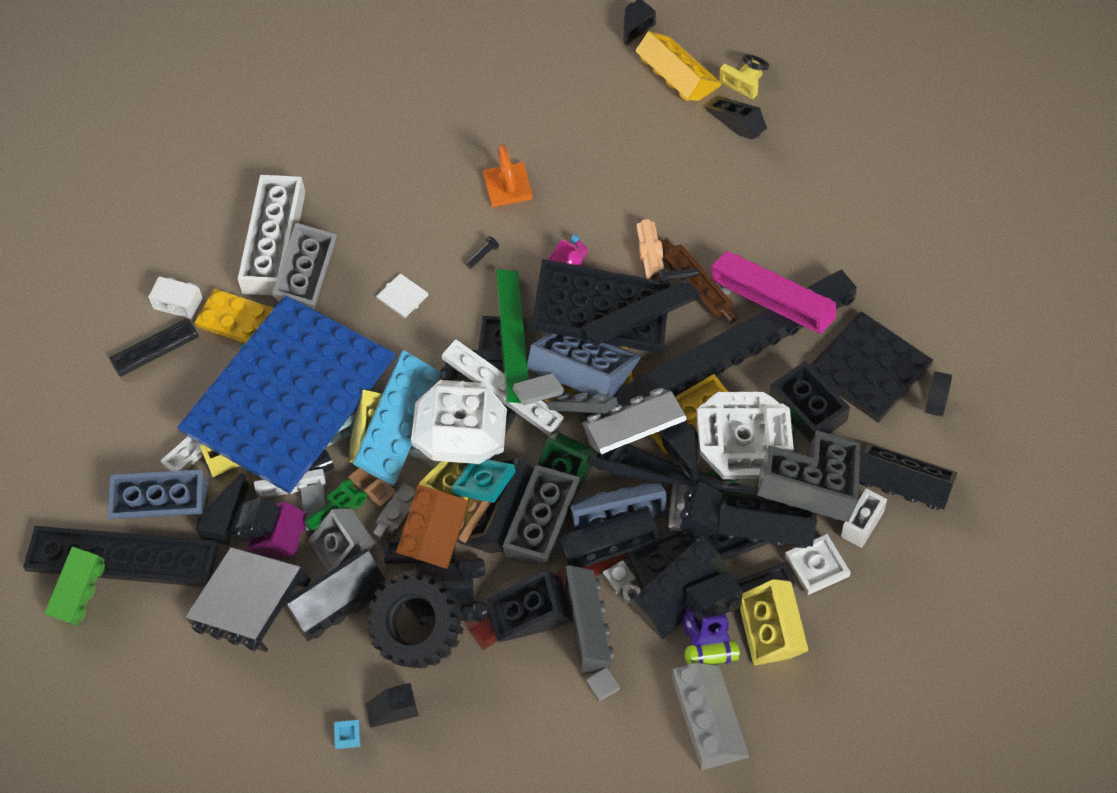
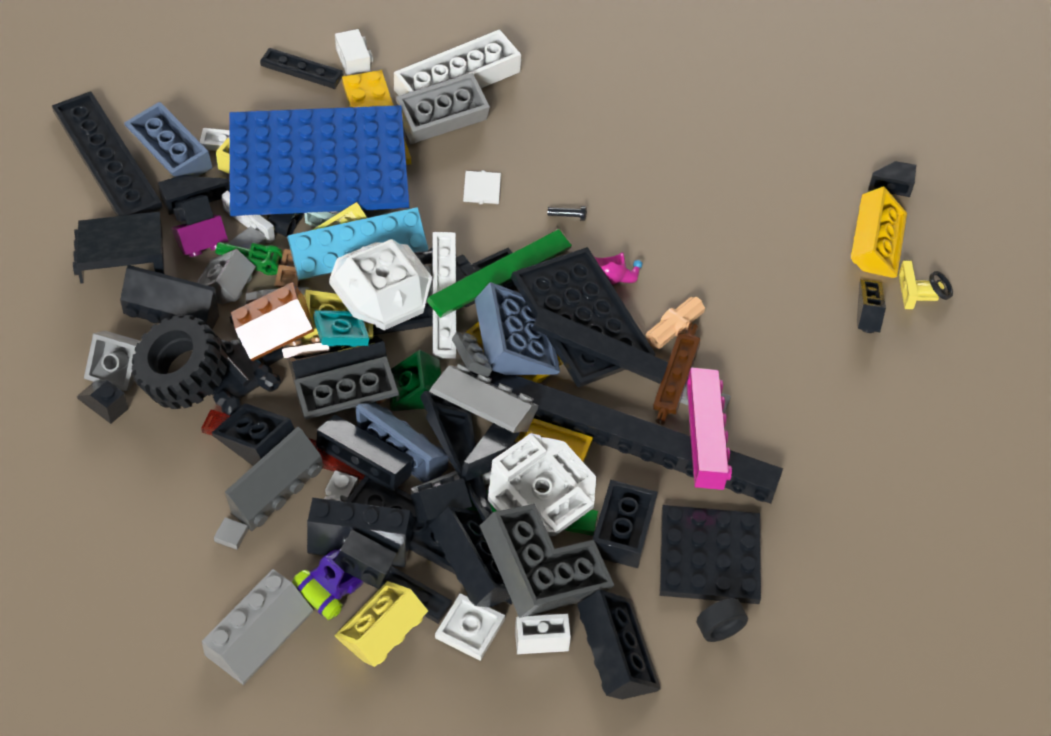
camera: 45 degrees right, 5 degrees down
(75, 586) = (55, 141): bright green brick -> none
(347, 734) = (57, 384): medium azure plate -> none
(360, 673) = (111, 359): none -> light grey slope
(508, 182) = (650, 189): orange tile -> none
(538, 389) = (455, 313): light grey tile -> none
(678, 274) = (654, 343): black piece -> none

